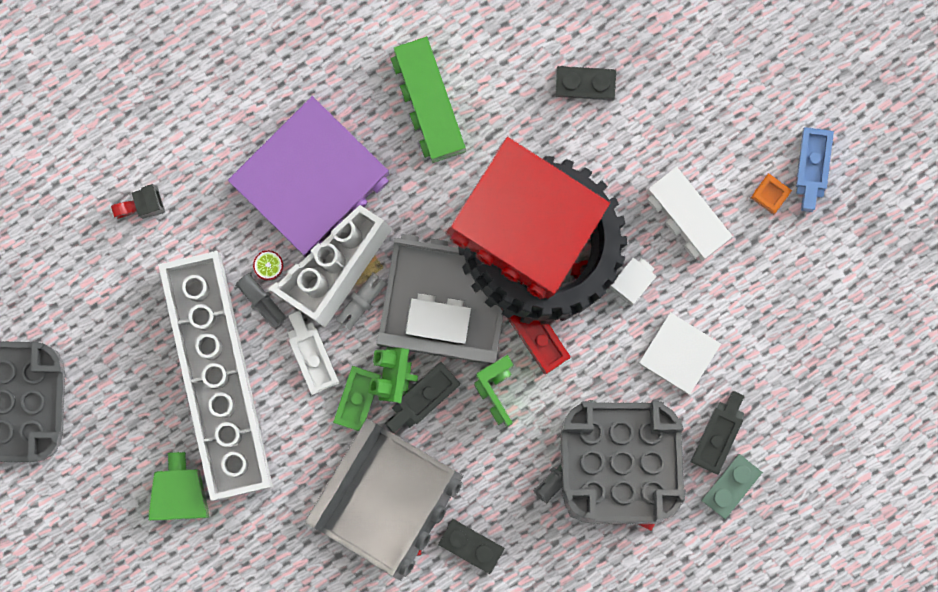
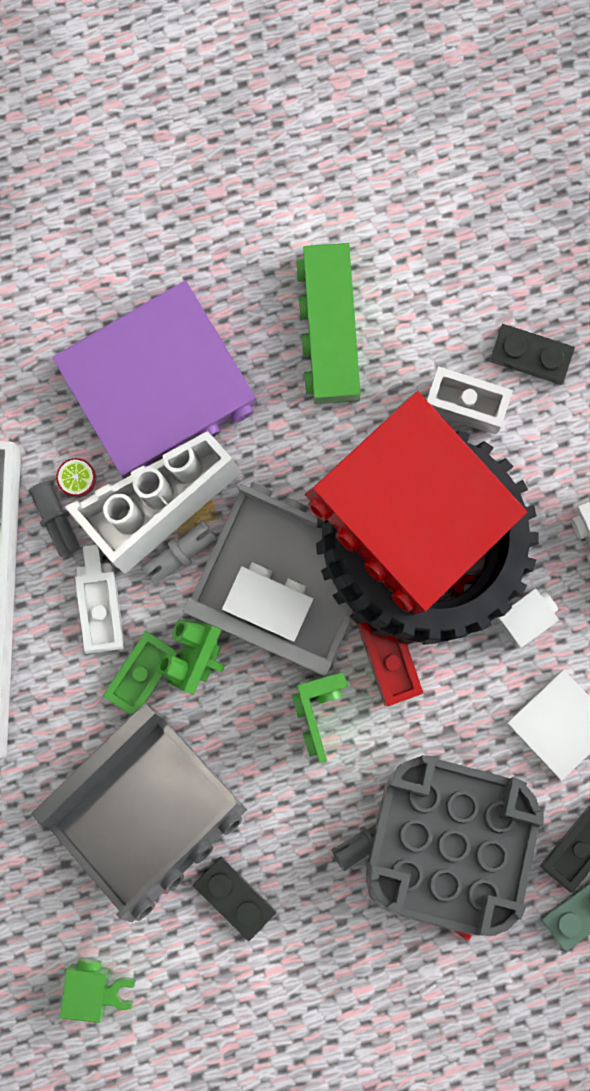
camera: 20 degrees right, 0 degrees up
(423, 397) = (224, 694): pearl dark grey hinge -> none
(546, 131) = (469, 400): none -> white brick

